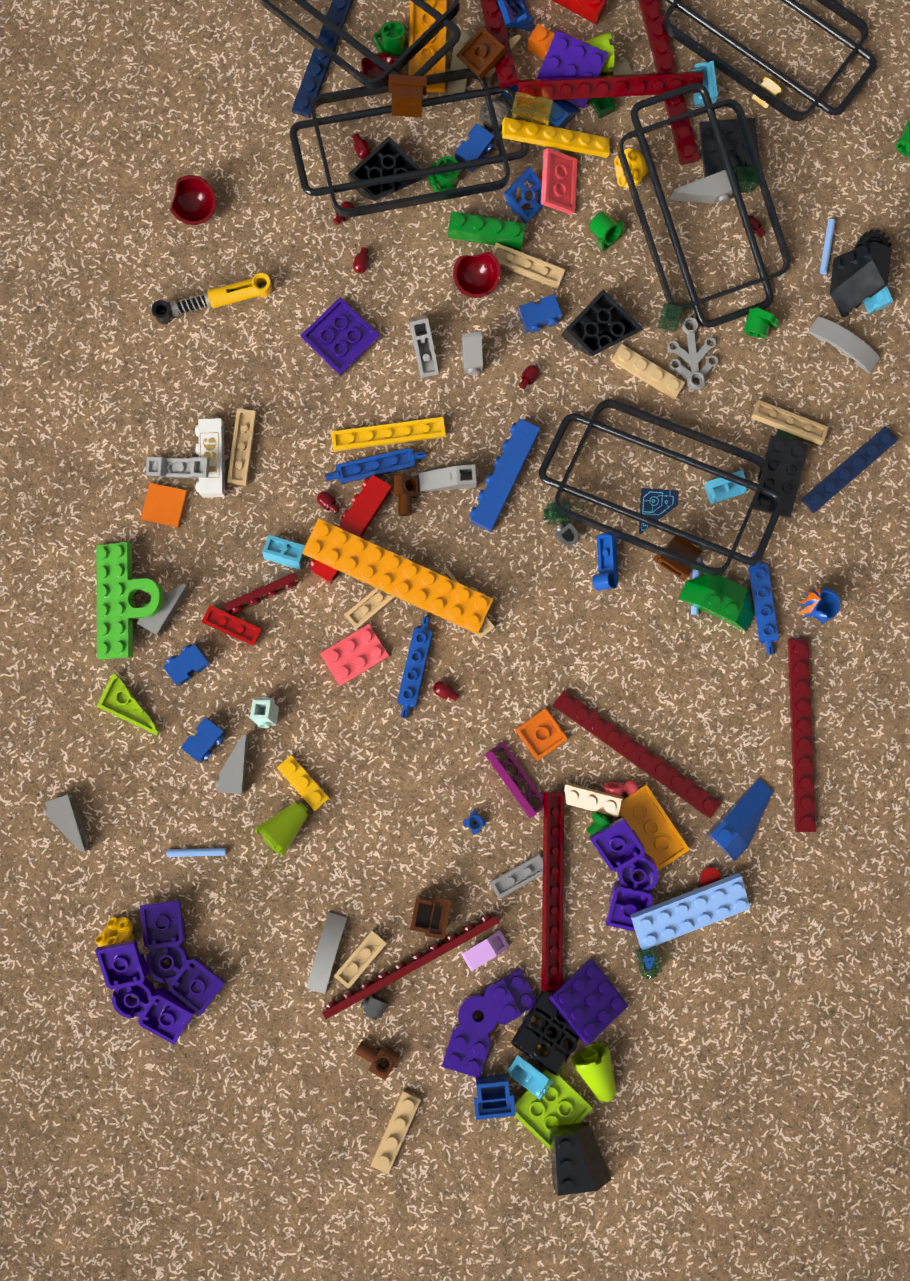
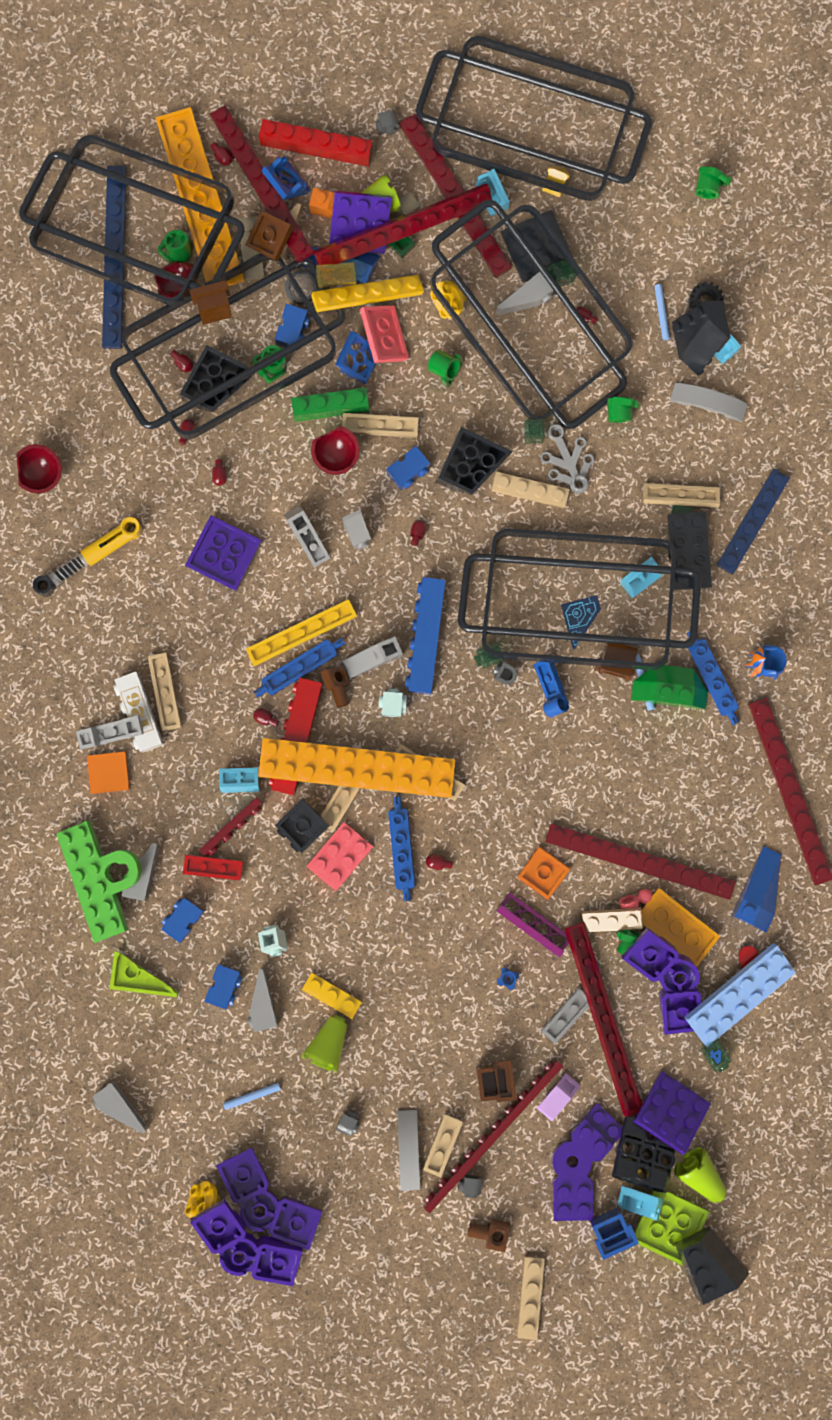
camera: 15 degrees left, 0 degrees up
(278, 907) = (348, 1123): none -> dark grey plate
(328, 614) = (302, 826): none -> black plate
(452, 528) = (393, 703): none -> light aqua brick

